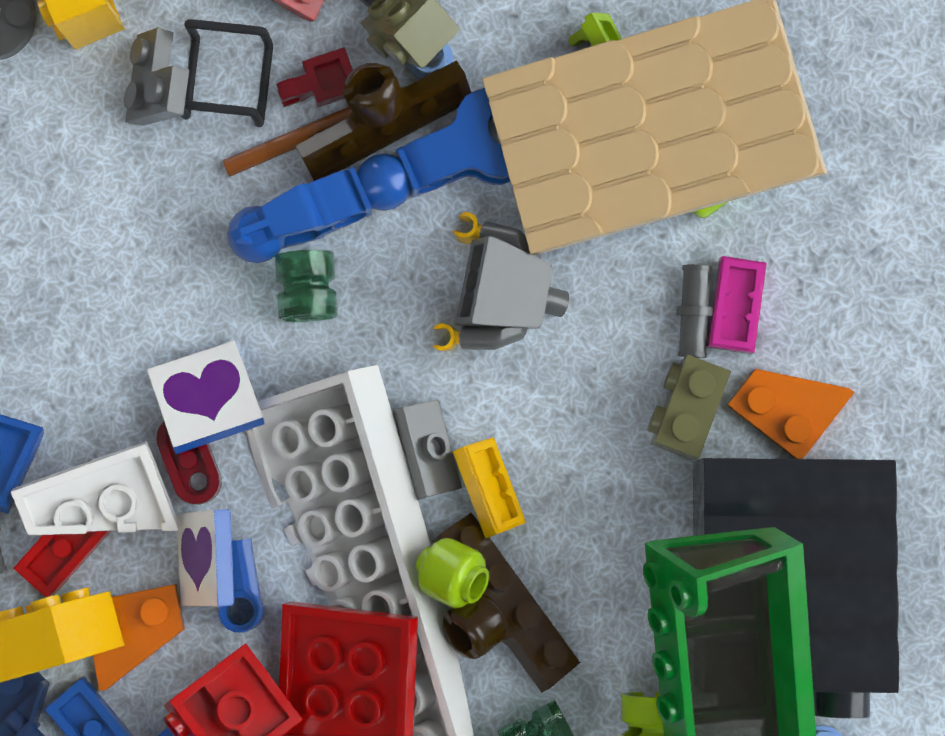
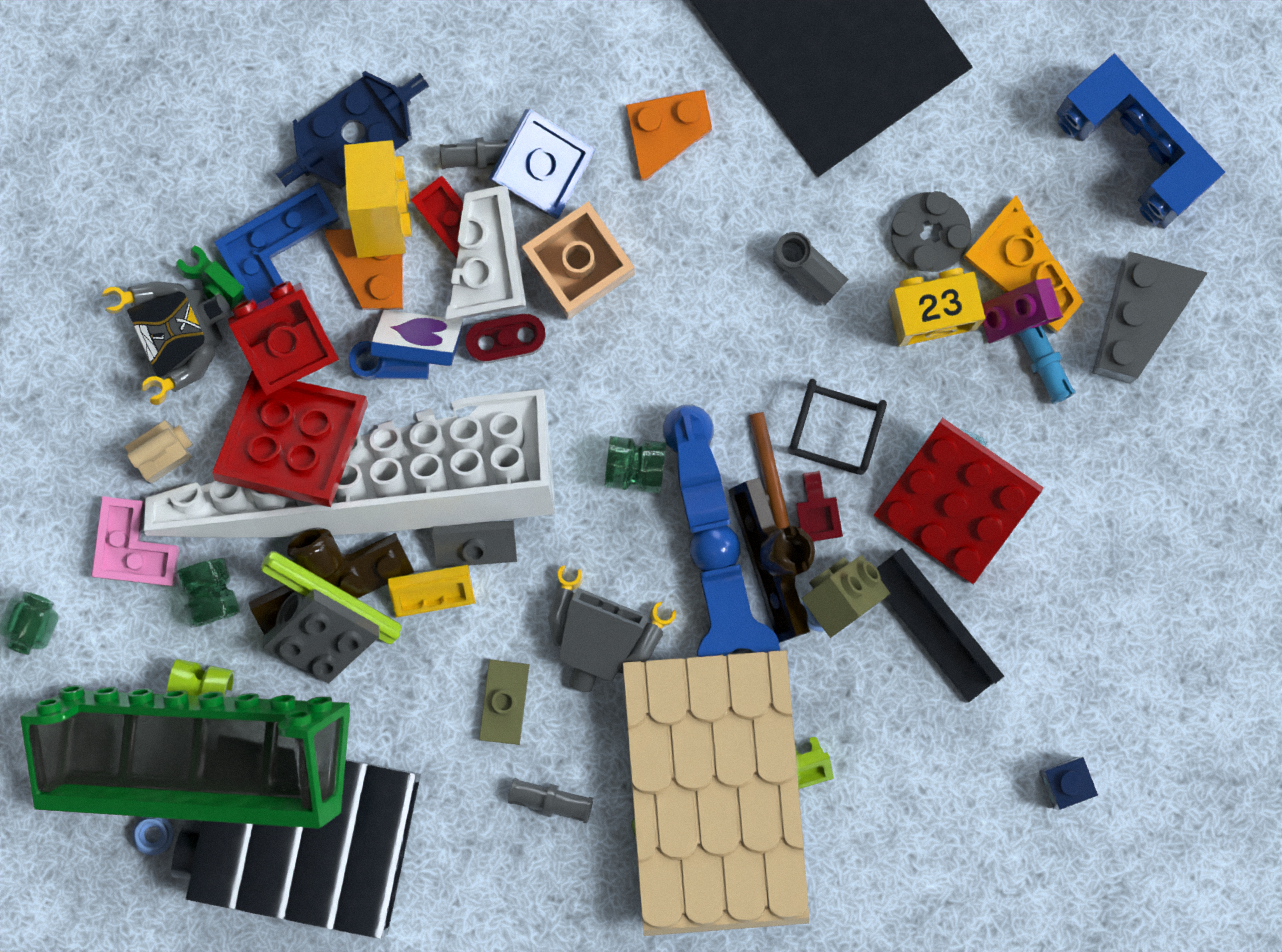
camera: 100 degrees right, 0 degrees up
(52, 133) = (812, 271): none -> dark grey piece
(84, 392) = (578, 260): none -> light nougat brick
(155, 88) = (832, 361): dark grey plate -> none
(205, 397) = (556, 361): tile -> none
(452, 573) = (361, 543): lime head -> none
(519, 599) = (304, 582): none -> lime axle
(564, 602) = (319, 634): none -> dark grey plate
(596, 383) = (504, 702): none -> olive plate
(689, 408) = (466, 777): olive brick -> none
(736, 305) = (549, 838): dark pink plate -> none
(789, 408) = (449, 867): orange wing -> none

